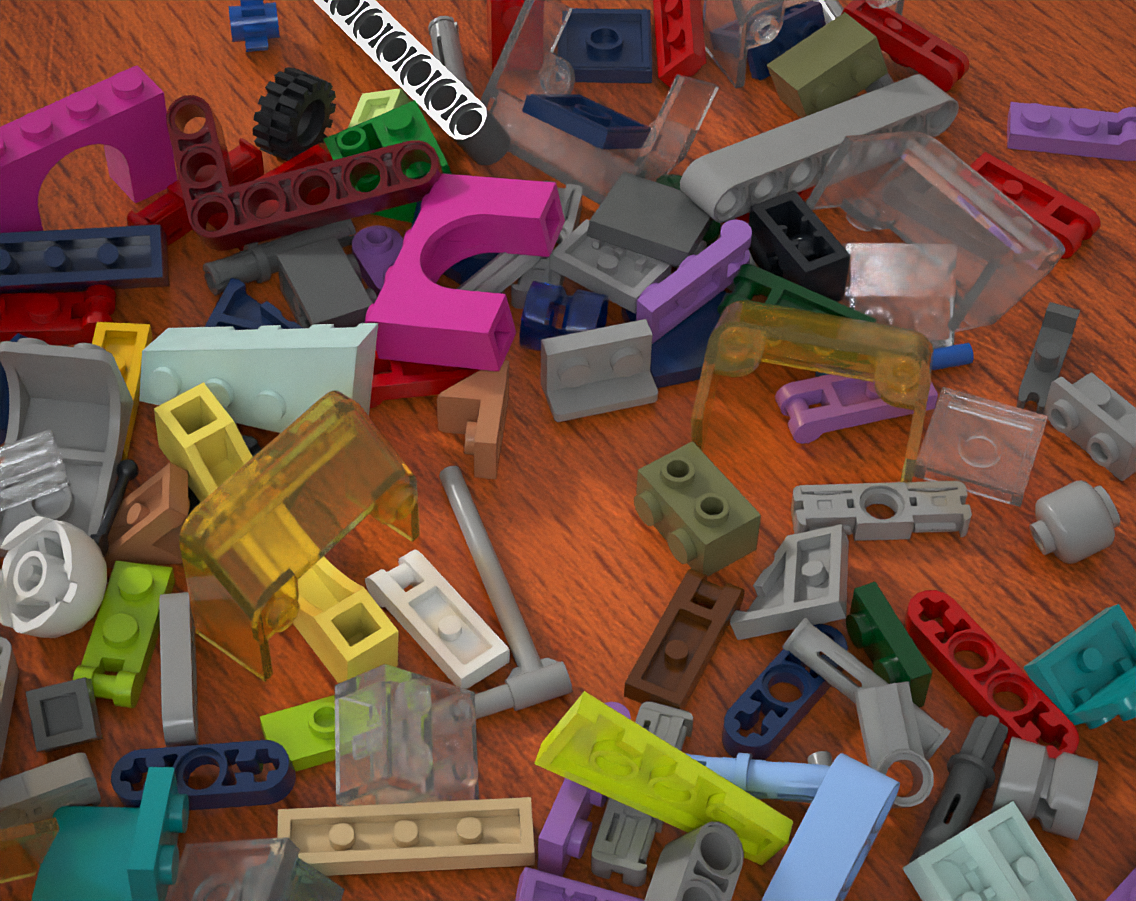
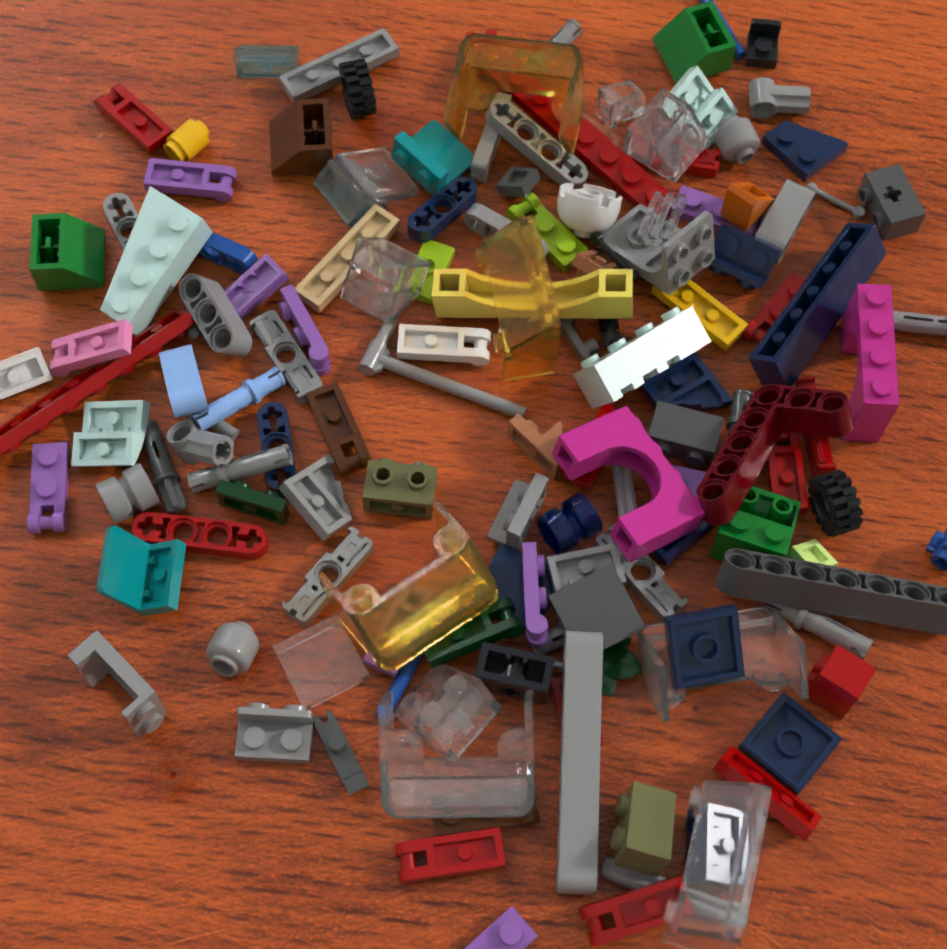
camera: 130 degrees right, 15 degrees up
(646, 773) = (260, 334): neon yellow wing -> none

